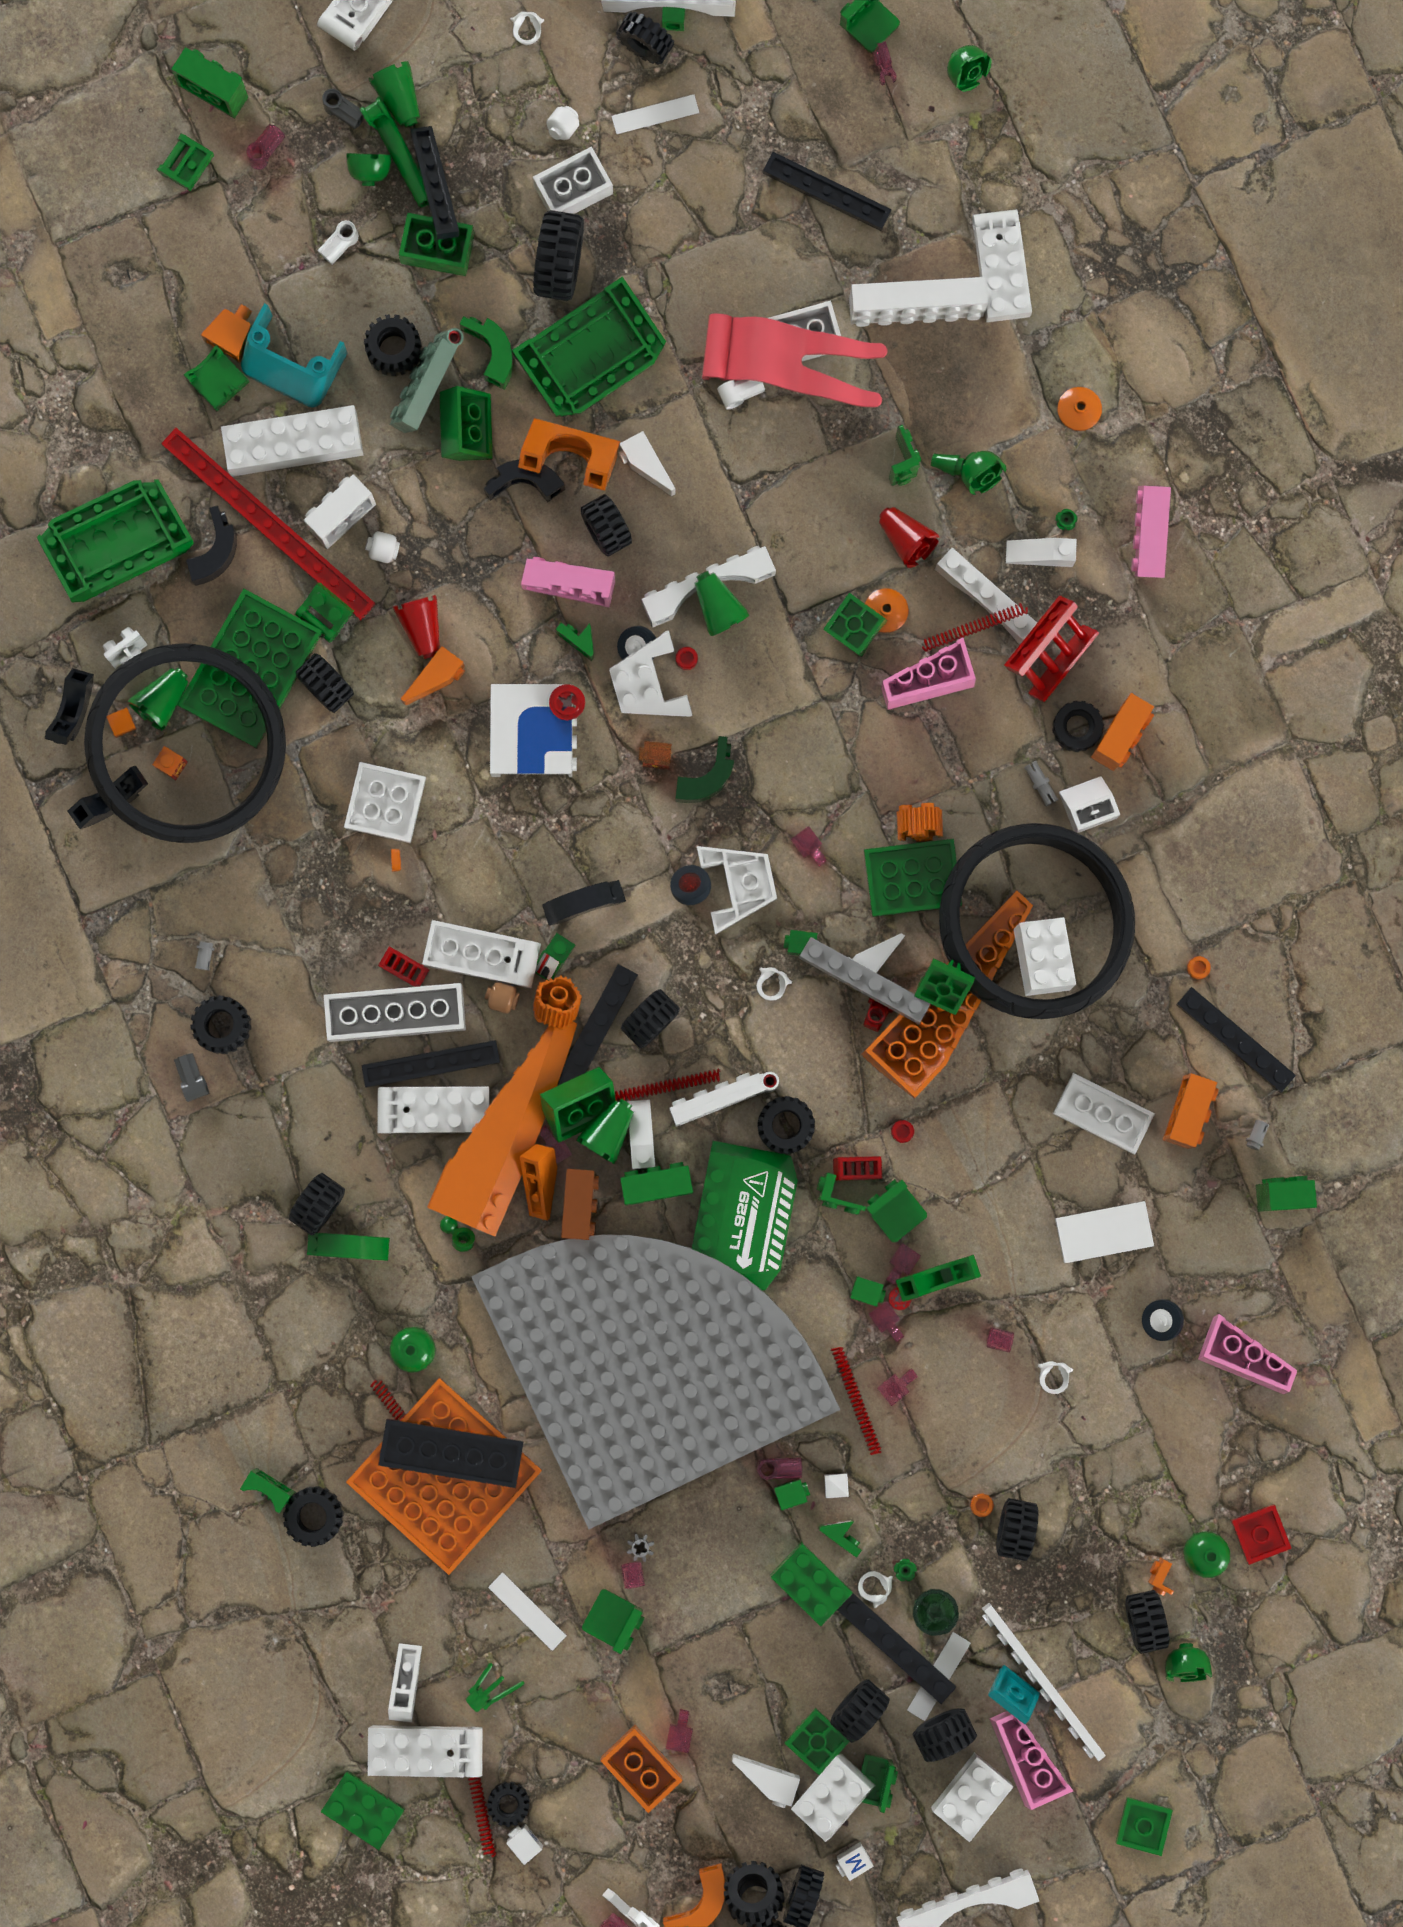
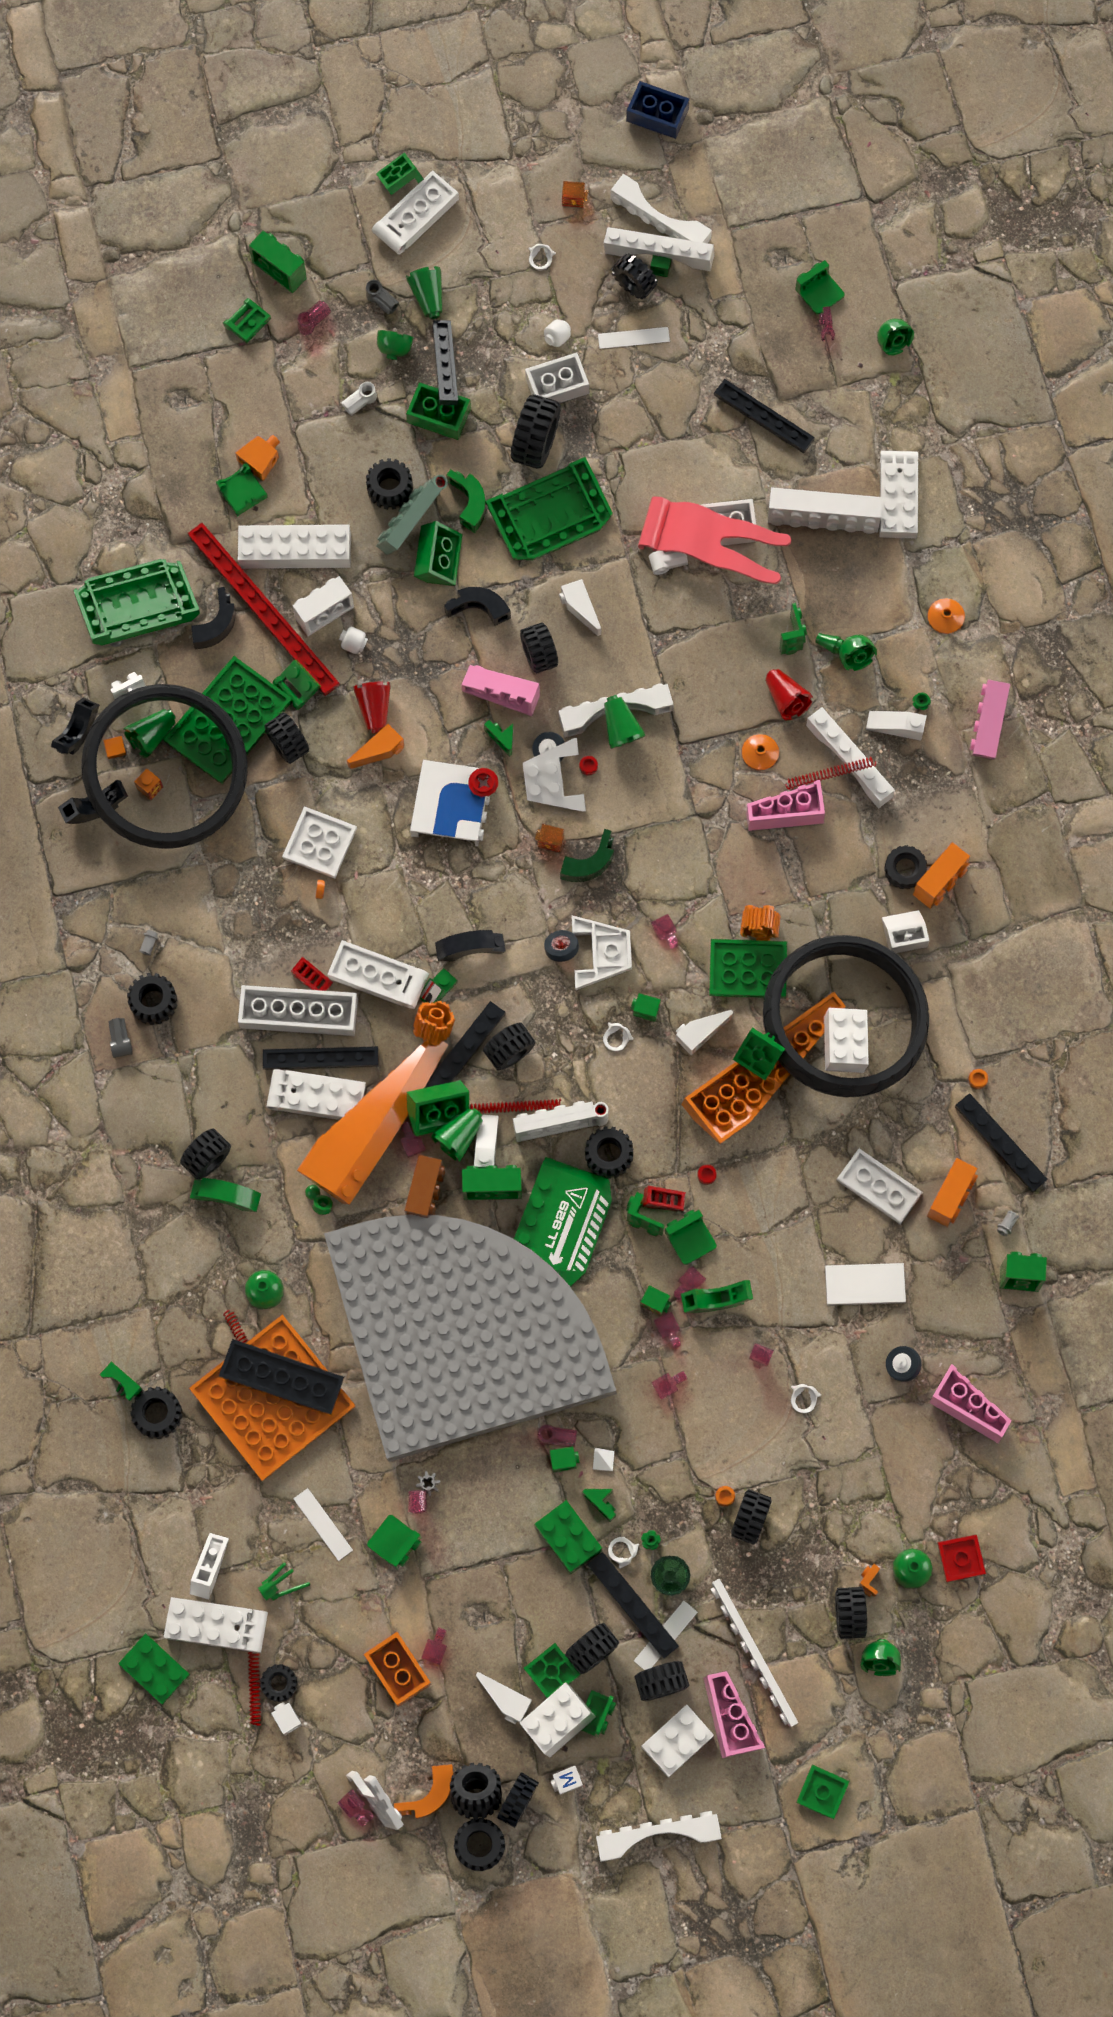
camera: 15 degrees right, 10 degrees down
(300, 383) = (296, 494): teal windscreen -> none
(381, 119) = (409, 307): green axle -> none
(502, 997) = (389, 1012): medium nougat head -> none
(539, 1179) = (394, 1164): orange slope -> none
(548, 438) = (504, 574): orange arch -> none
(849, 1377) = (631, 1392): red piece -> none
(855, 624) = (732, 757): green piece -> none
(864, 980) = (693, 1042): light grey plate -> none
(878, 1010) = (703, 1070): red plate -> none
(896, 1301) = (678, 1313): red tile -> none
(1014, 1694) = (727, 1657): teal tile -> none
(1038, 639) = (878, 792): red fence -> none
(1041, 783) = (868, 909): light grey pin -> none

